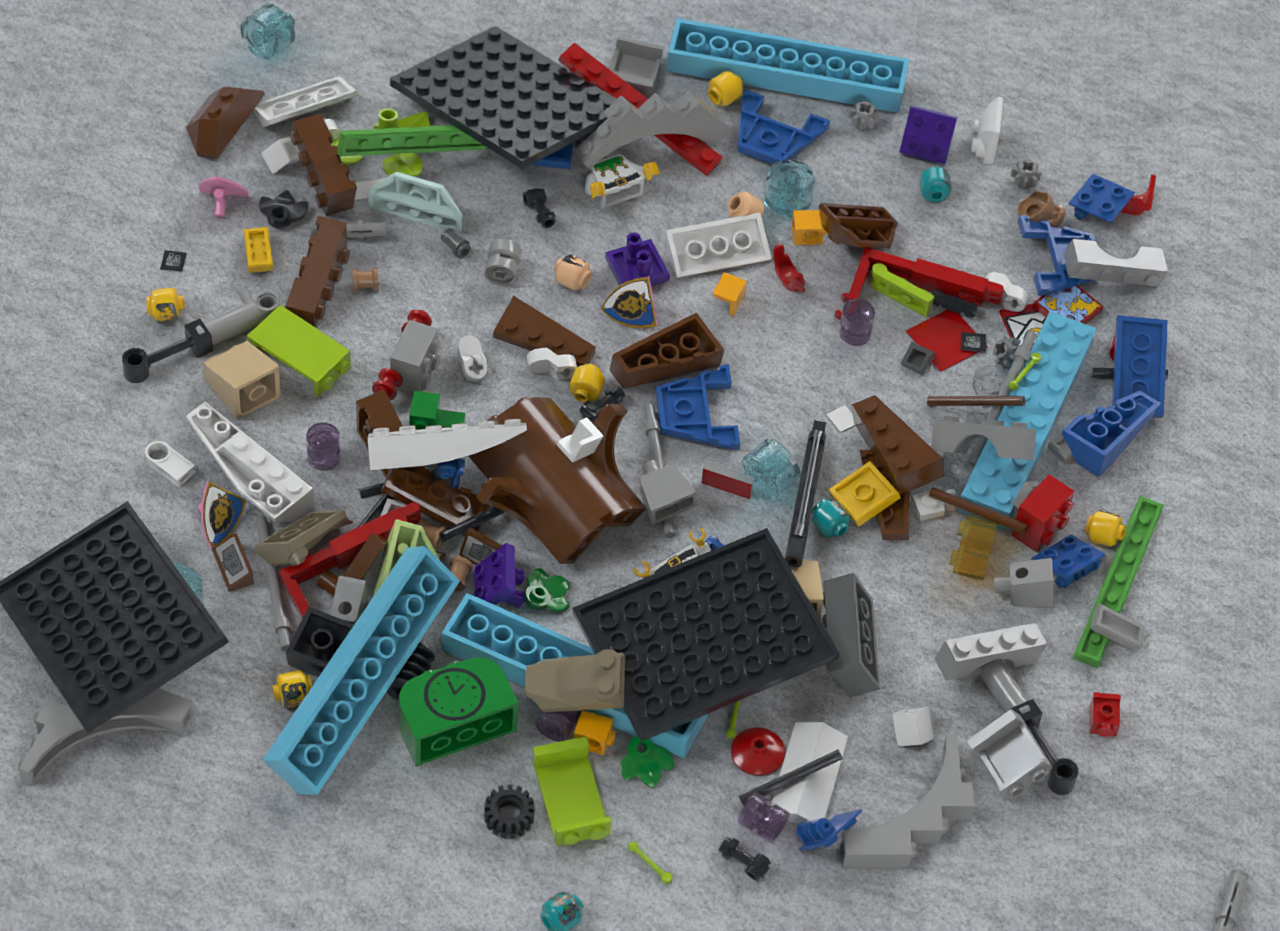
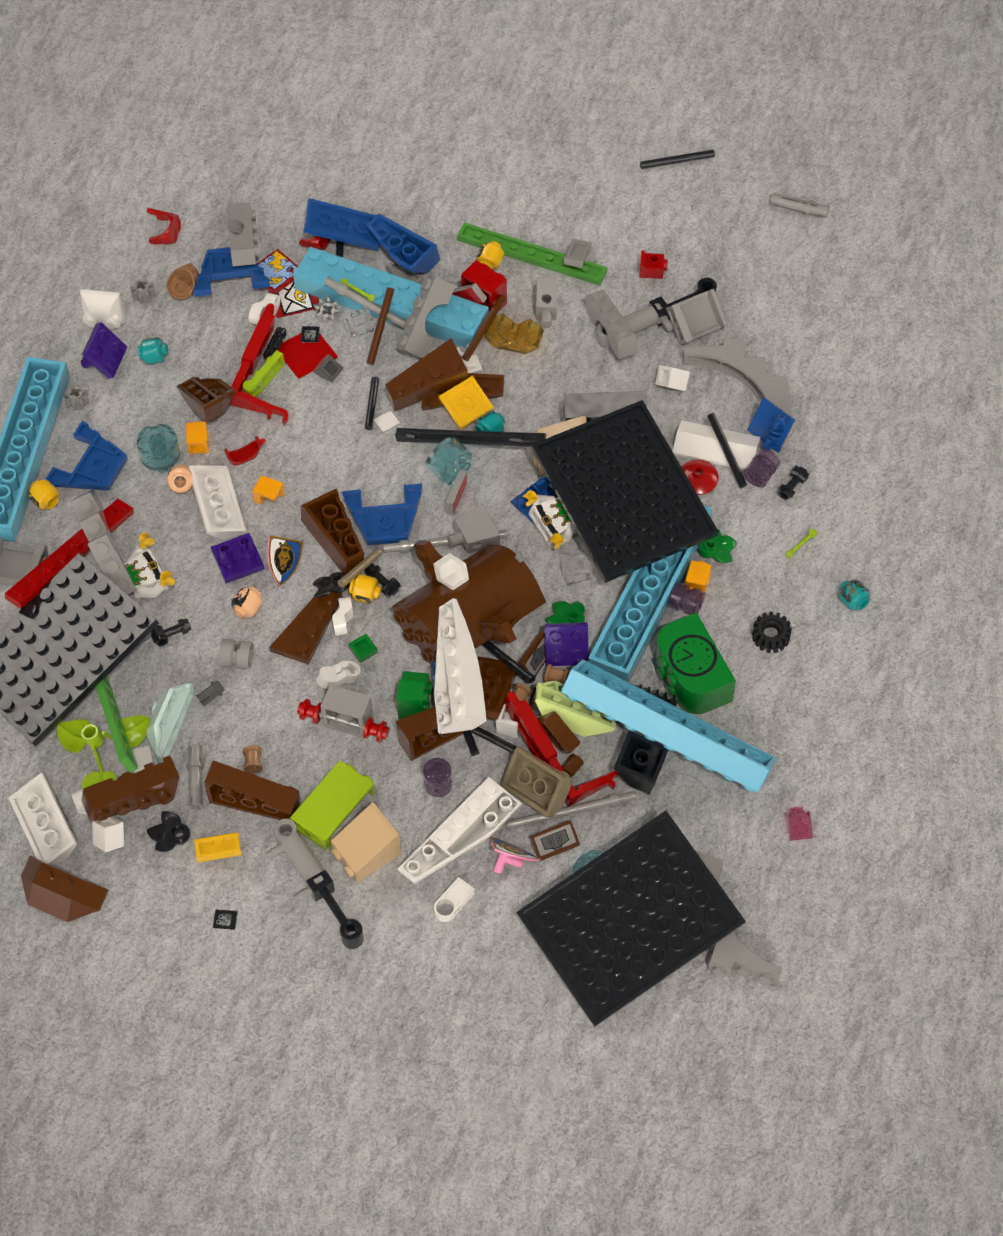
camera: 85 degrees left, 5 degrees up
(165, 304) = (284, 915): yellow head -> none
(221, 188) = (154, 878): bright pink shield -> none
(229, 817) = (799, 823): none -> clear pink bracket
(291, 688) = (677, 785): yellow head -> none
(349, 599) = (600, 747): light grey torso -> none
(507, 383) = (363, 648): none -> green plate
(570, 791) = (751, 594): lime panel -> none
(577, 682) = (673, 571): dark tan slope -> none
(594, 351) = (329, 584): none -> black plate
(613, 375) = (360, 567): none -> dark tan bar
(851, 399) = (371, 403): none -> black bar
(857, 322) = (299, 403): clear purple wheel -> none
(1071, 559) = (520, 279): blue hinge -> none
(1100, 199) = (173, 241): blue hinge -> none

